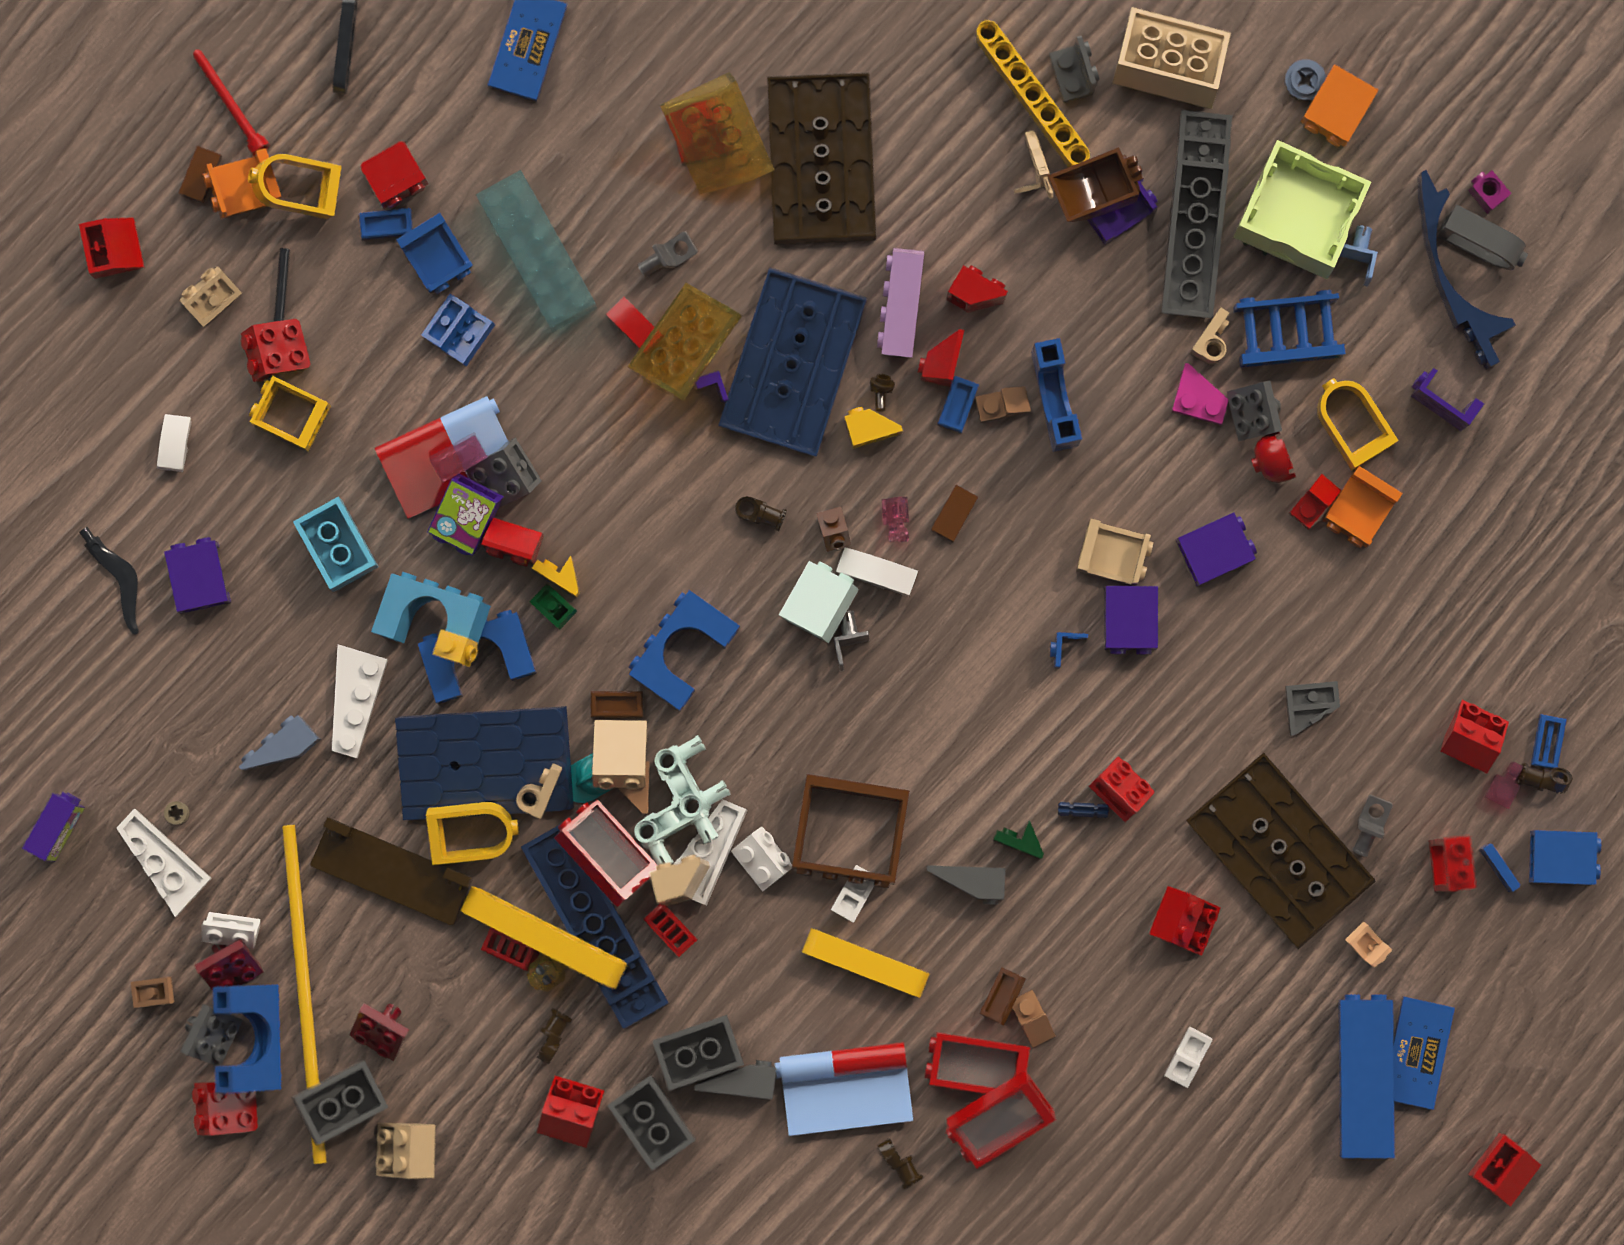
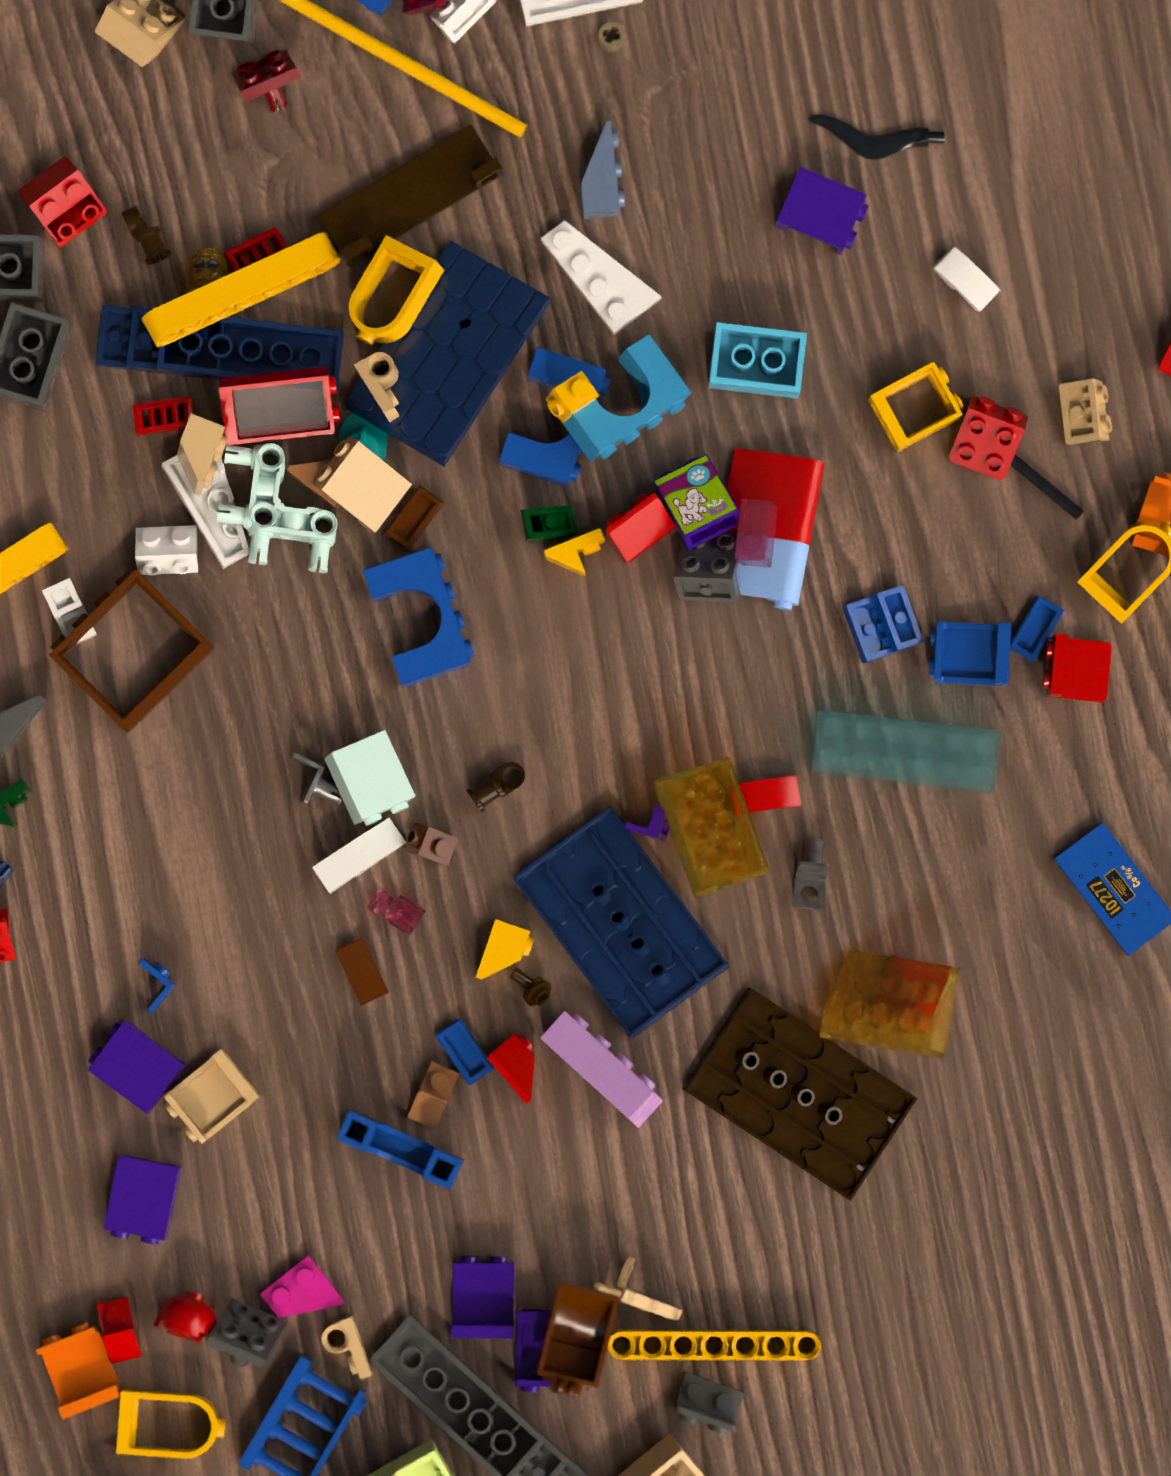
camera: 120 degrees right, 0 degrees up
(974, 292) = (561, 1143): red slope -> none
(1115, 272) = (483, 1298): none -> dark purple panel

